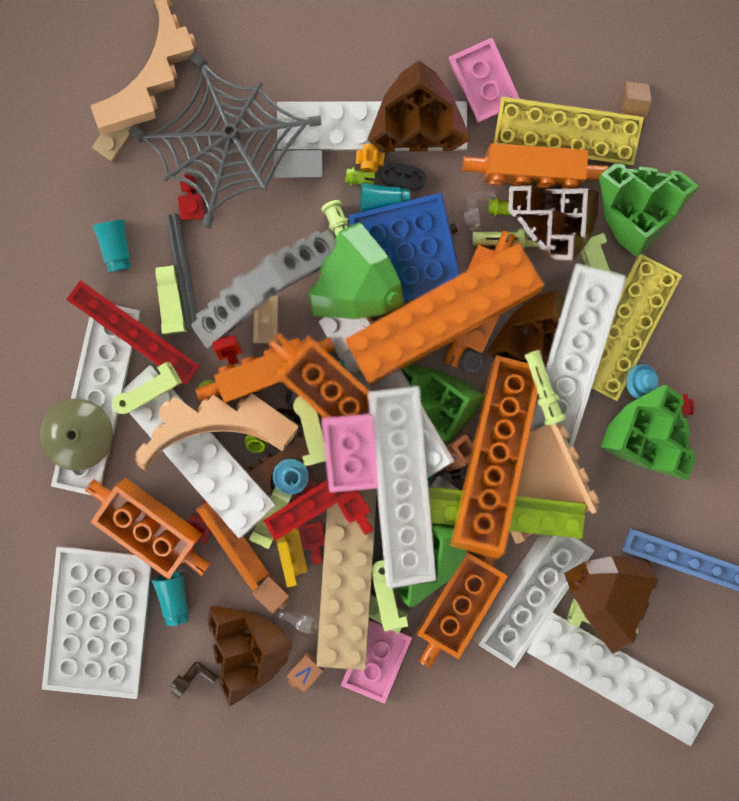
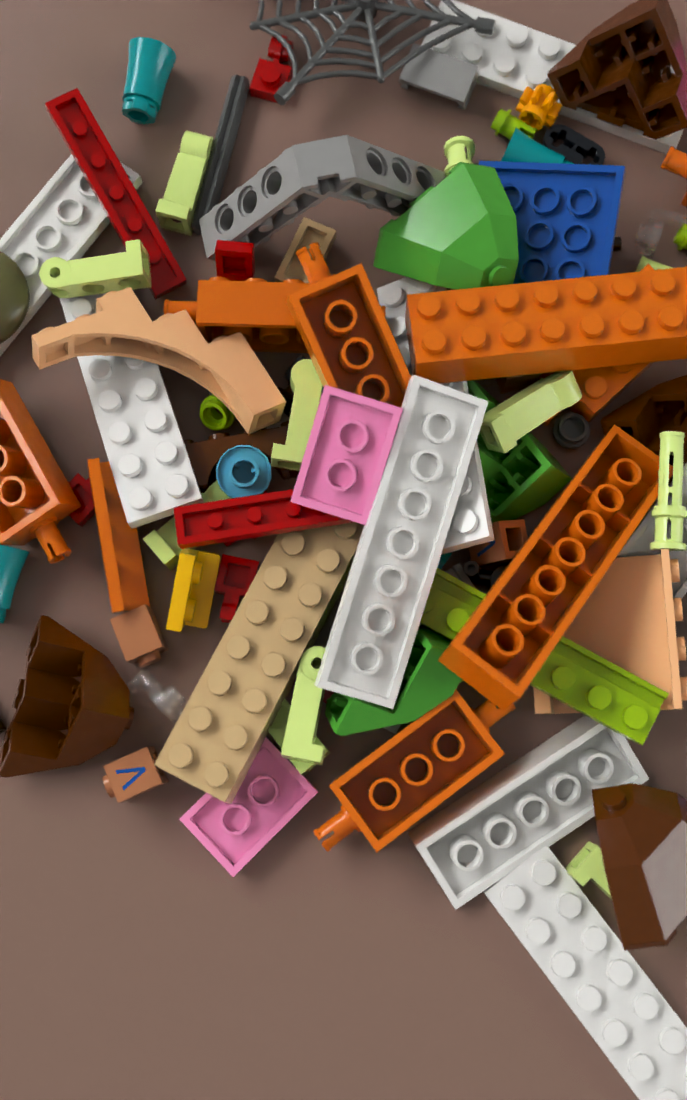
camera: 25 degrees right, 10 degrees down
(355, 509) = (317, 550): red plate -> none
(442, 370) = (528, 410): none -> yellowish green leg

